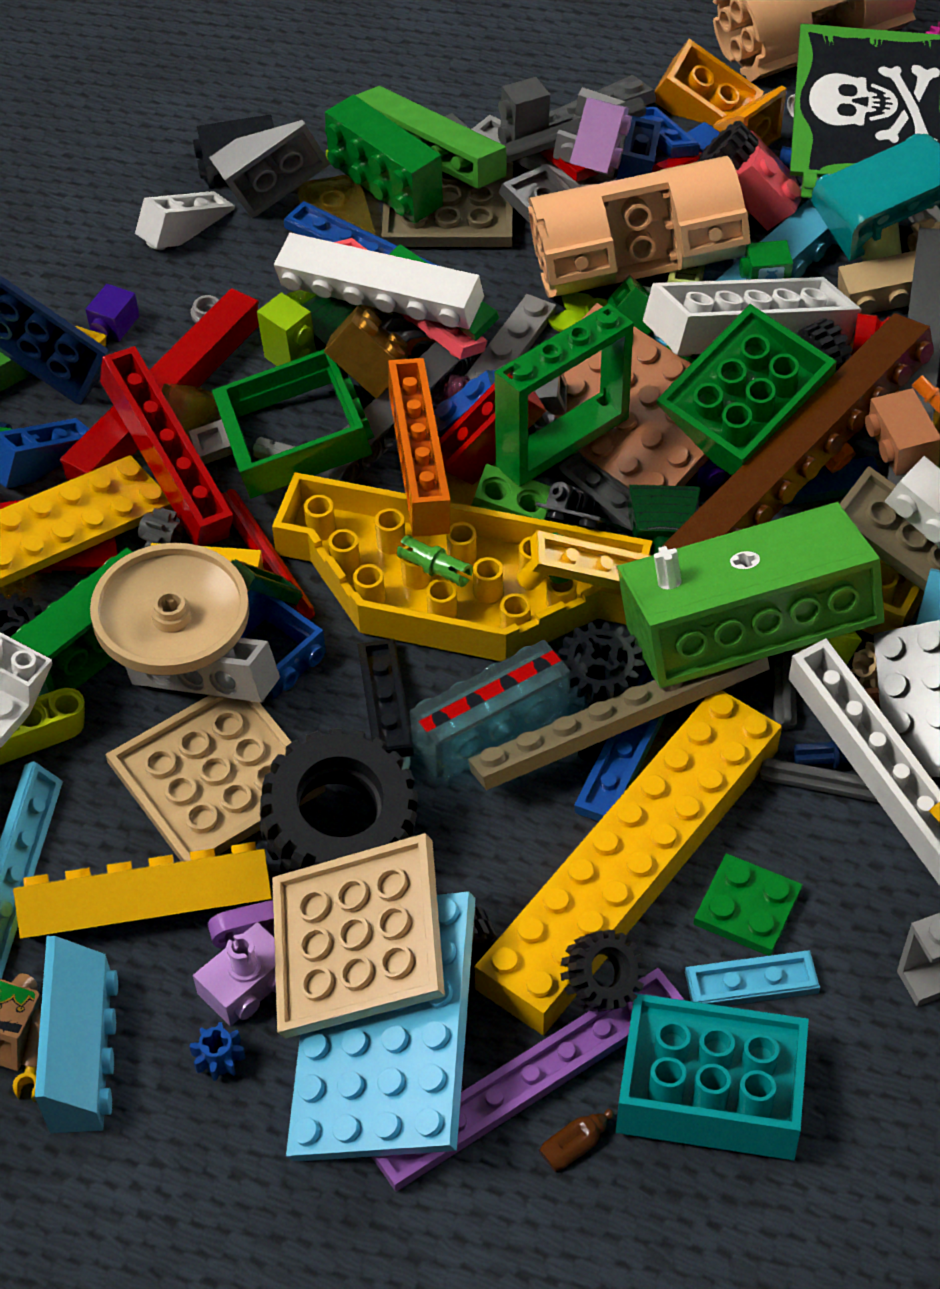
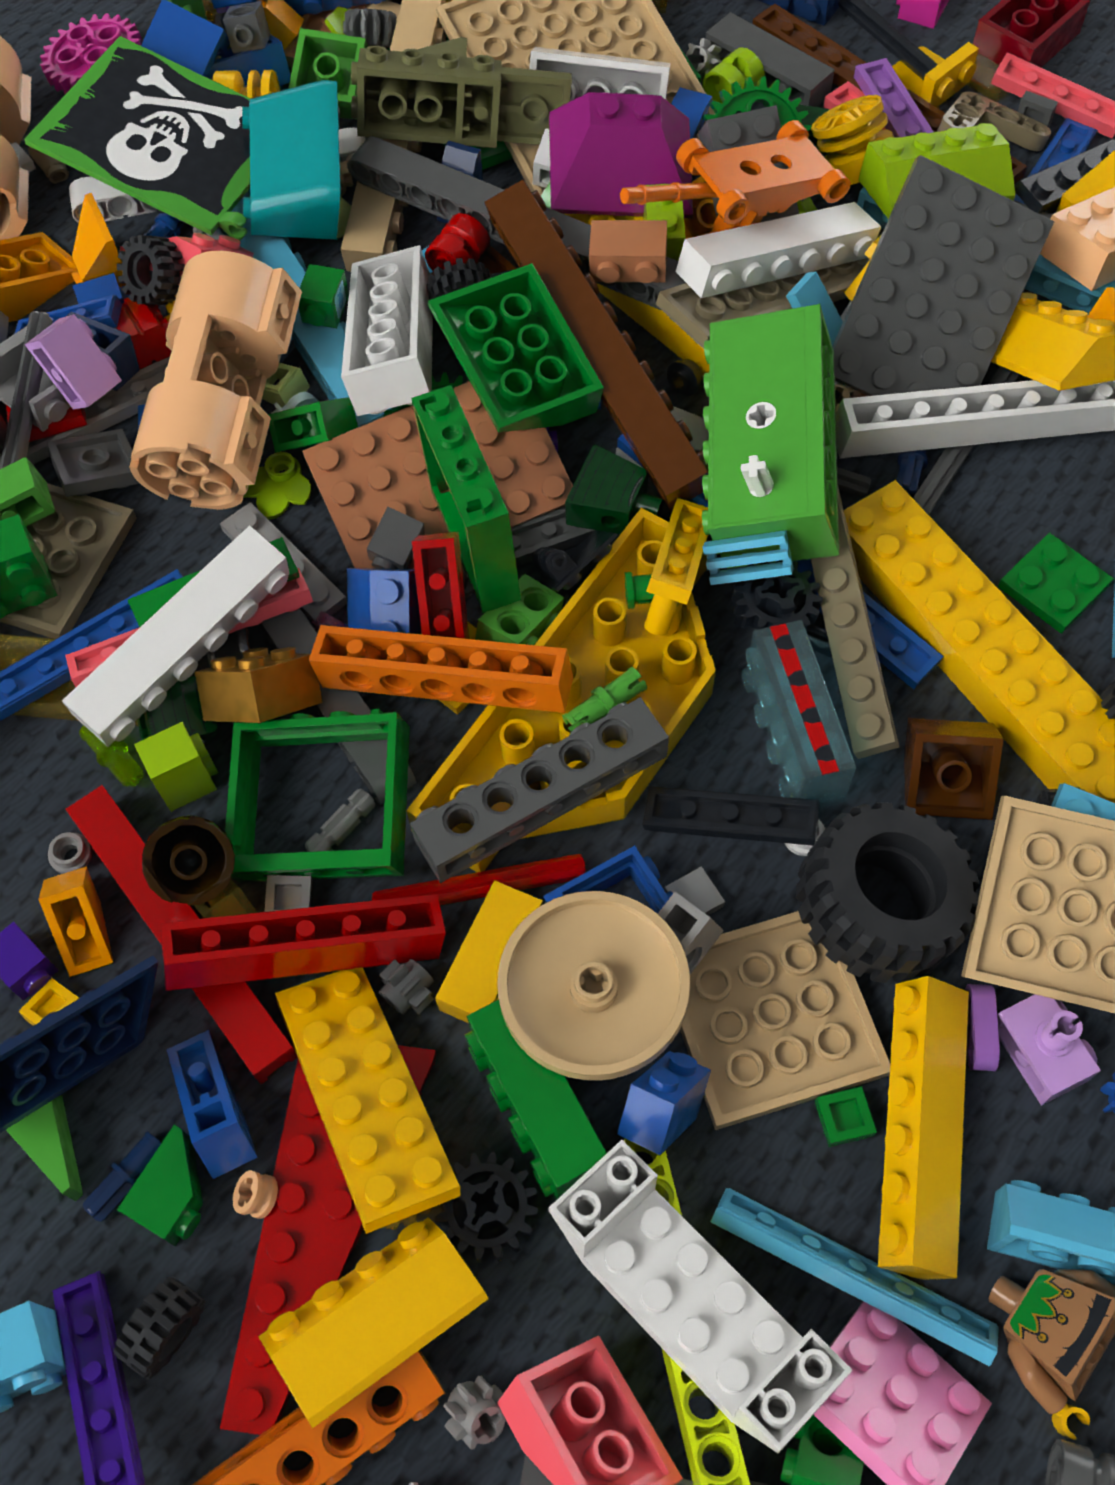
camera: 70 degrees left, 10 degrees up
(106, 702) = (664, 1102): none -> blue brick
(140, 842) = (845, 1116): none -> green plate
(155, 327) = (76, 921): none -> light orange slope
(208, 356) = (180, 874): none -> dark brown cone
(268, 583) = (554, 880): dark green tile -> none
(305, 697) = (698, 890): none -> light grey tile
(337, 540) = (568, 788): none -> dark grey brick
(497, 848) = (952, 767): none -> reddish brown slope
(610, 619) = (762, 571): none -> medium azure tile

